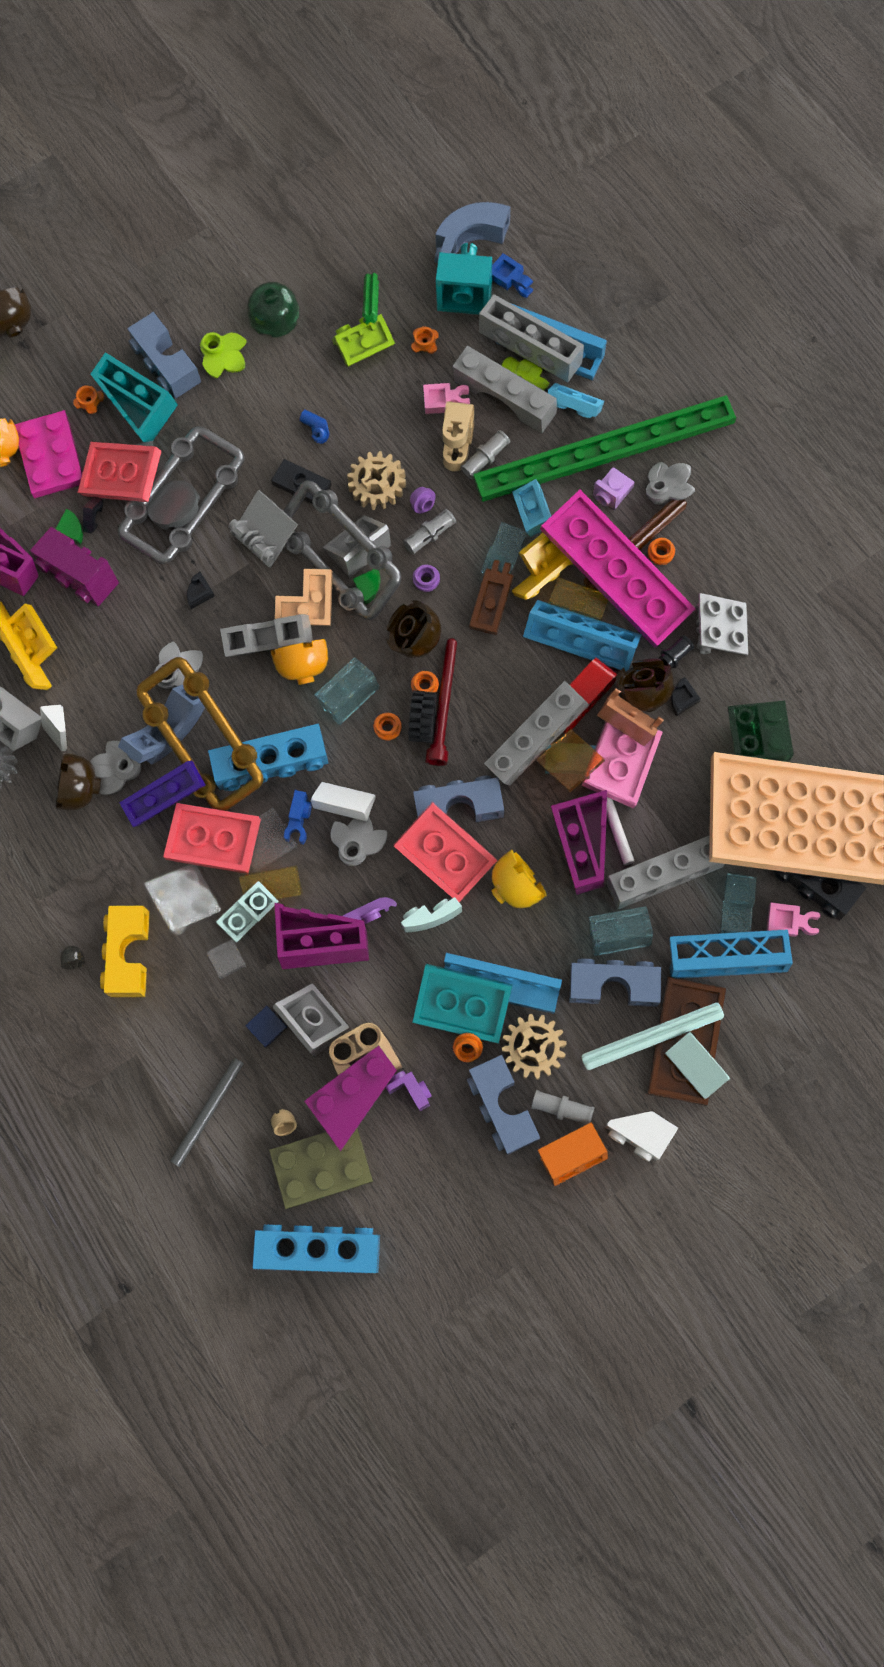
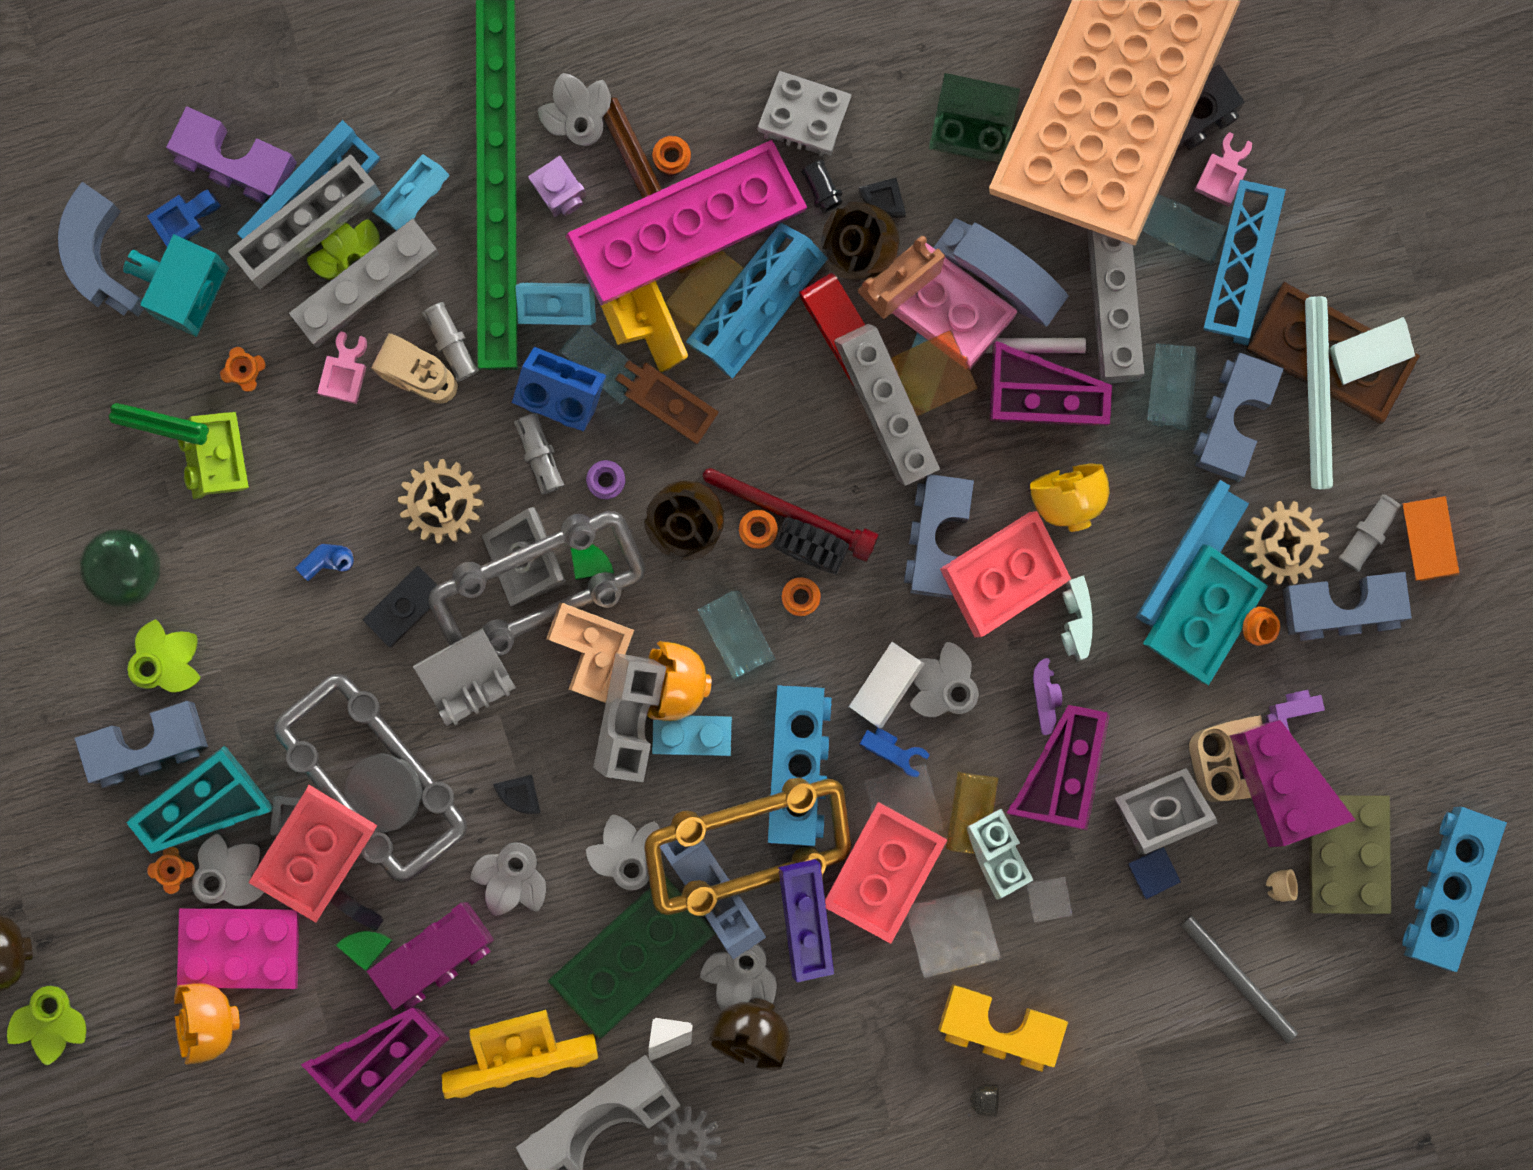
camera: 80 degrees left, 10 degrees up
(99, 430) = (231, 867): none -> light grey plate
(103, 691) = (629, 961): none -> dark green tile
(136, 602) = (510, 885): none -> light grey plate
(270, 687) = (693, 736): none -> medium azure plate
(422, 500) = (491, 448): medium lavender plate -> none
(475, 525) = (558, 389): none -> blue brick
(561, 272) = (199, 142): none -> medium lavender arch
(645, 1132) = (1430, 442): white slope -> none
(660, 787) = (1004, 268): none -> sand blue arch

